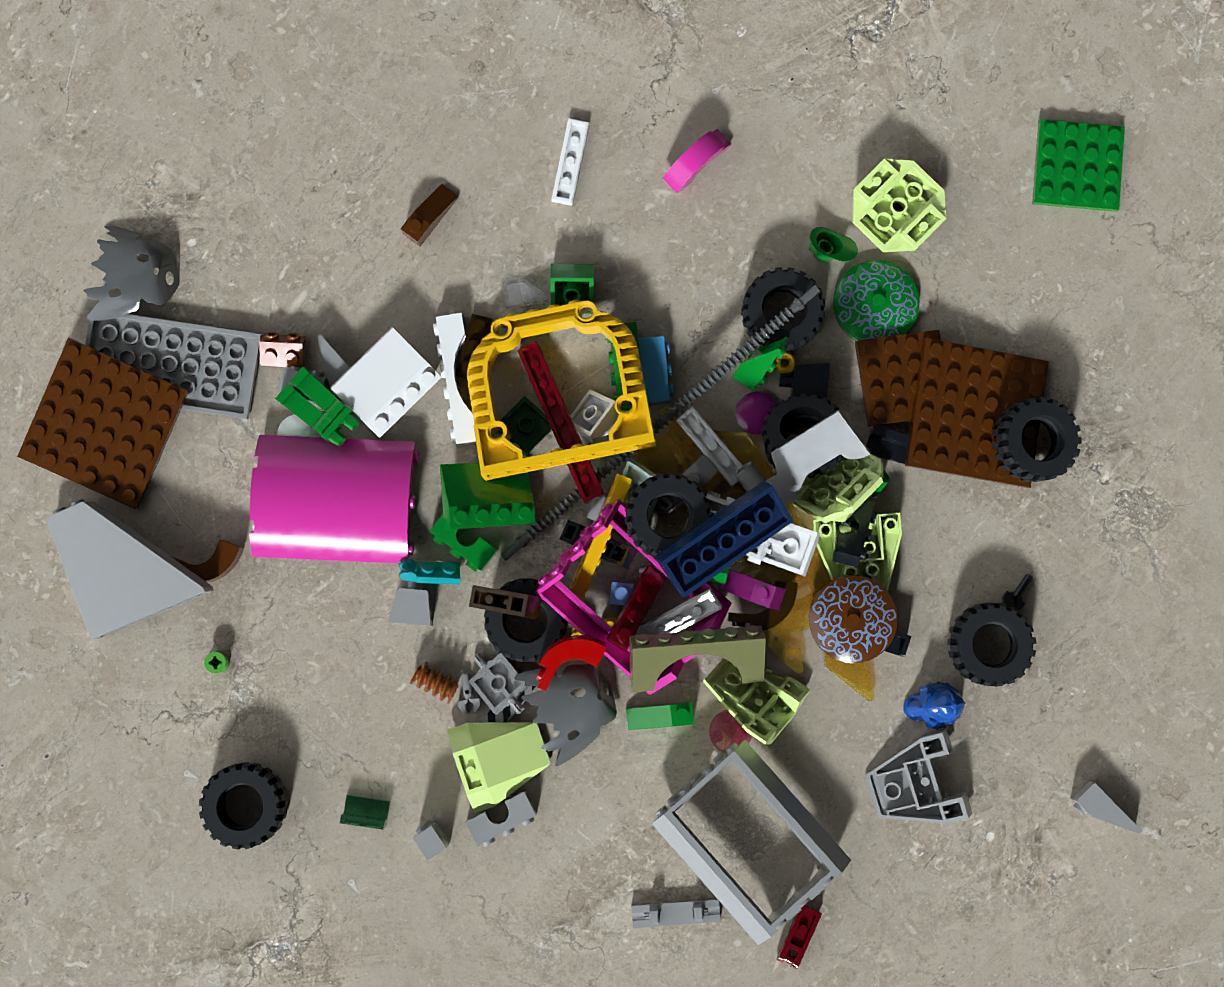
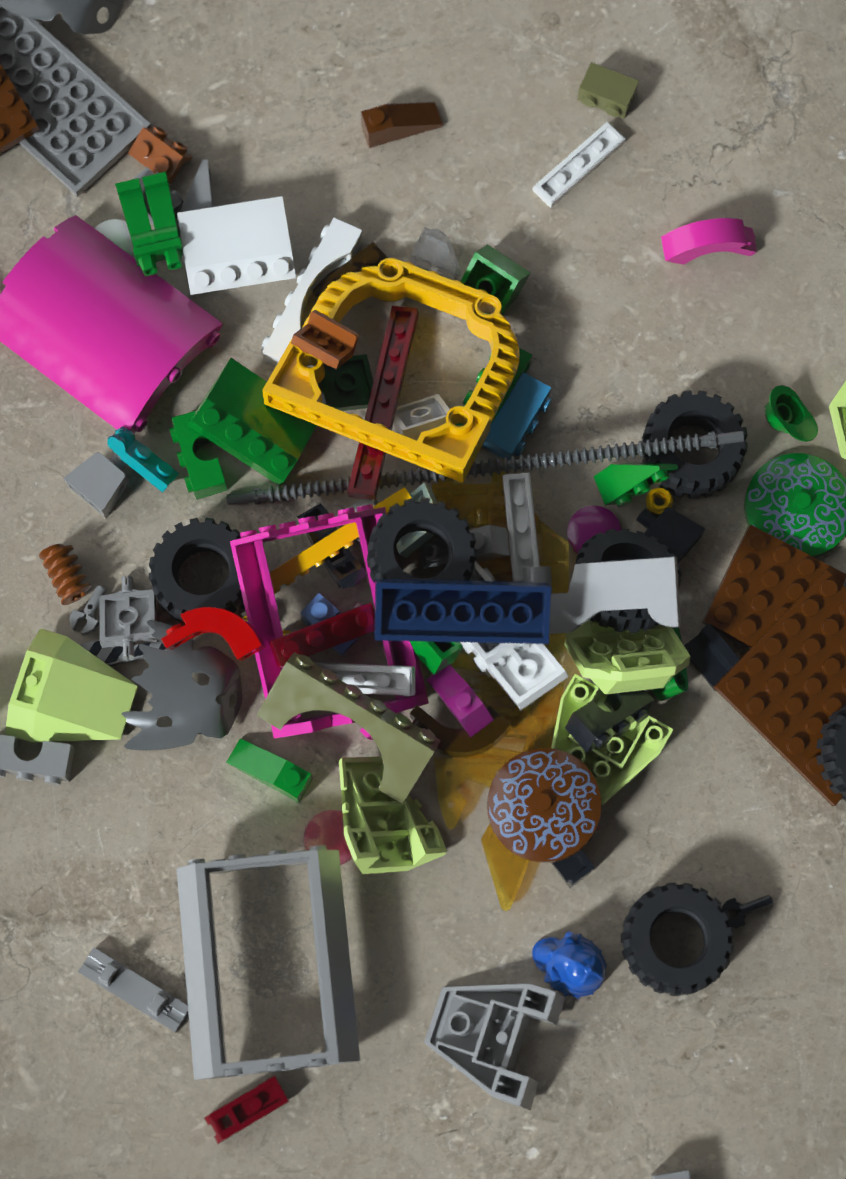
camera: 35 degrees right, 10 degrees down
(499, 412) = (326, 340): none -> dark orange bracket
(505, 602) = (194, 532): dark brown slope -> none
(554, 96) = (607, 90): none -> olive brick

